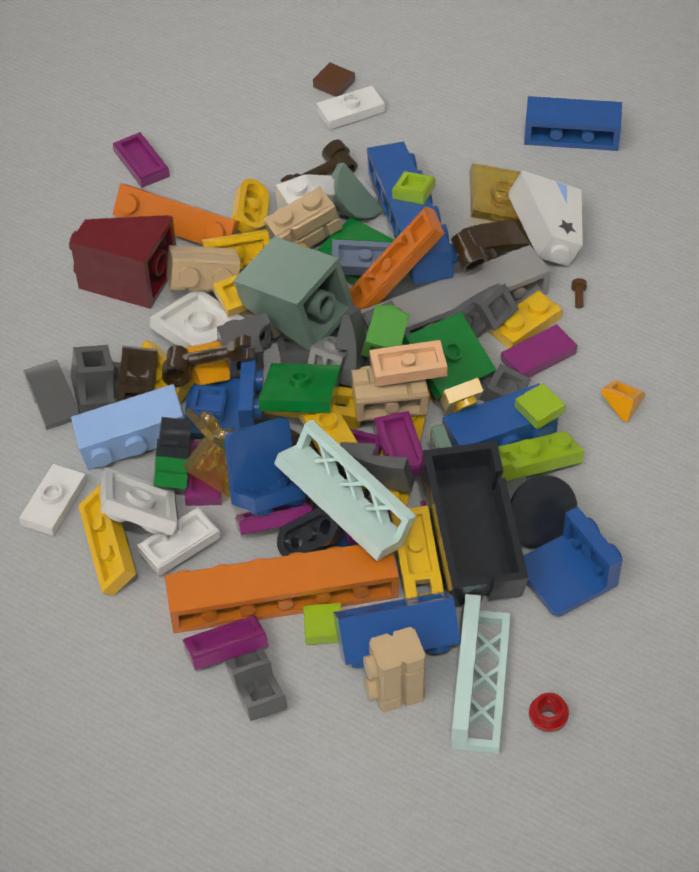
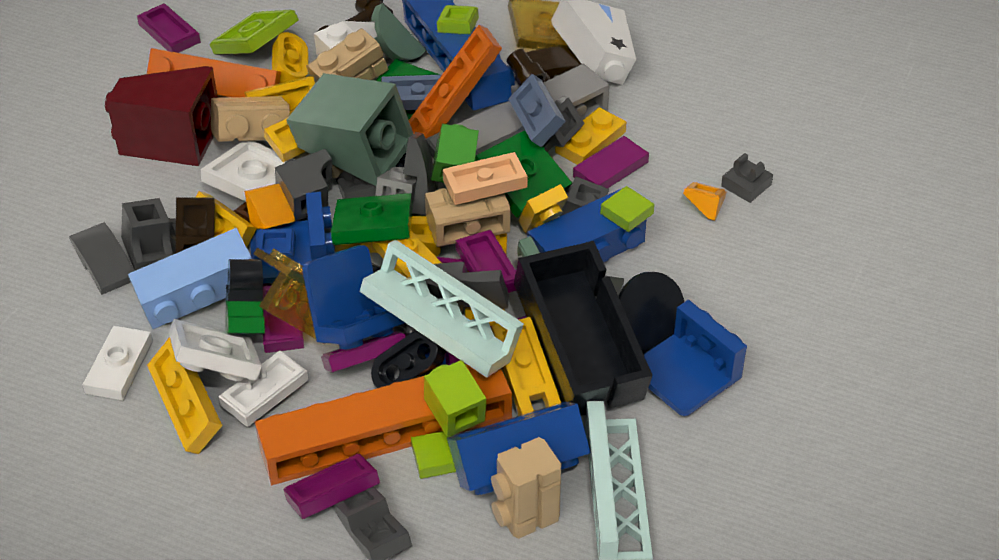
camera: 10 degrees left, 5 degrees down
(179, 362) = (240, 208): dark brown brick -> none
(220, 174) = (253, 32): none -> lime tile
(343, 577) = (454, 398): none -> lime brick
(471, 295) = (536, 110): none -> sand blue plate
(539, 455) = (638, 256): lime plate -> none
(548, 703) = (702, 505): red plate -> none
(579, 285) = (638, 100): reddish brown piece -> none
(667, 383) = (747, 179): none -> dark grey tile

